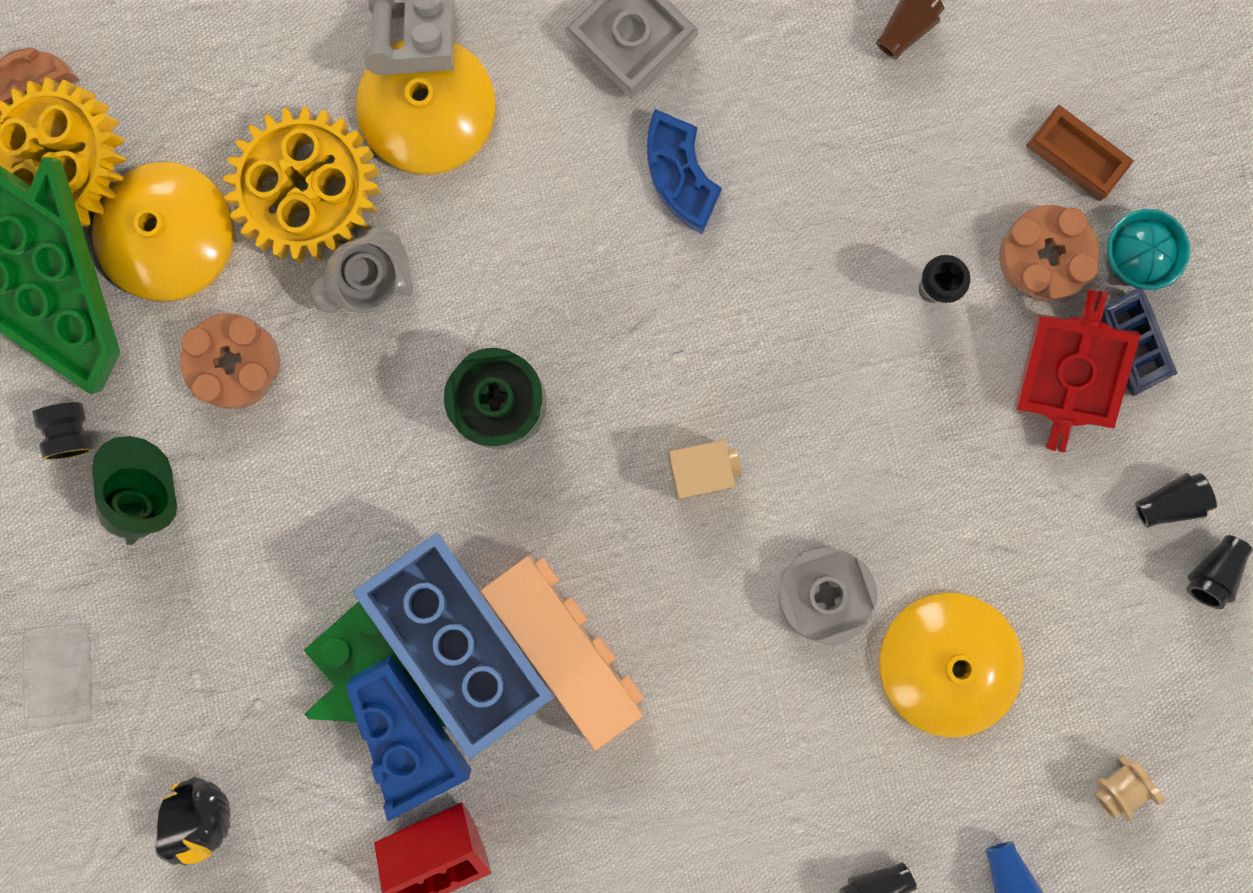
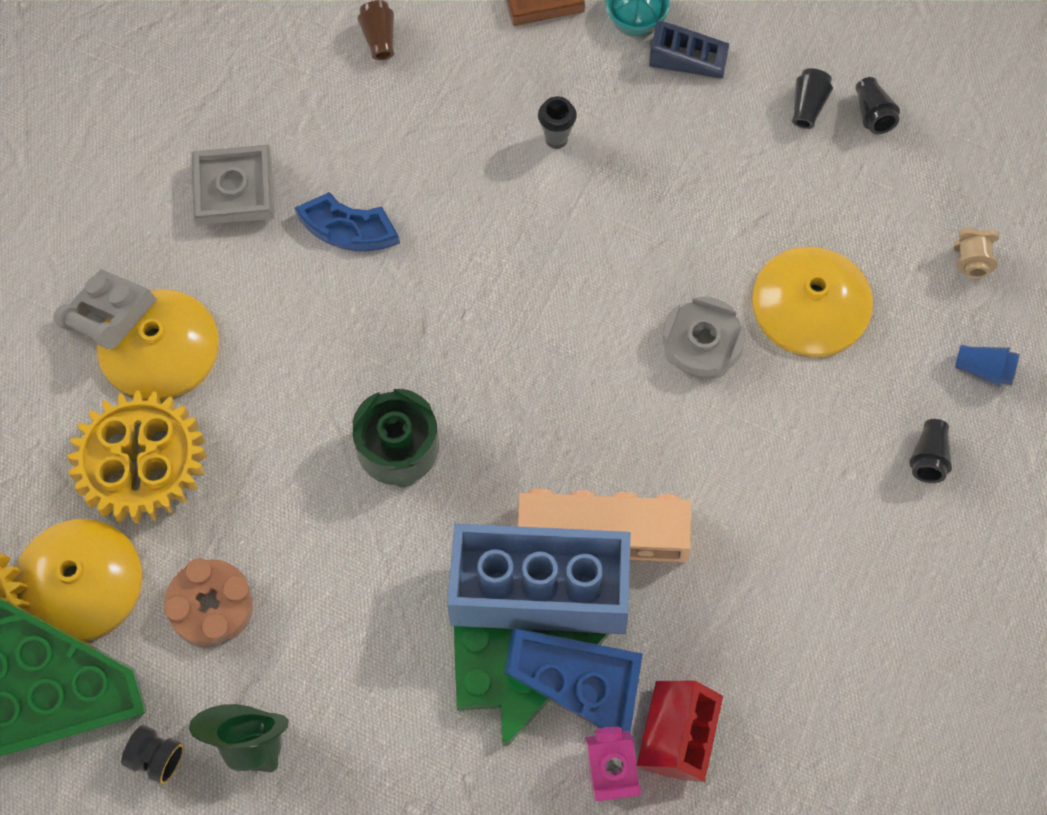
camera: 55 degrees left, 20 degrees down
(349, 829) = (617, 782): none -> dark pink brick
(363, 274) = (233, 464): light grey hair -> none
(704, 469) = (555, 349): tan brick -> none
(1063, 229) = (592, 39): nougat plate -> none
(1077, 370) = (679, 90): red plate -> none

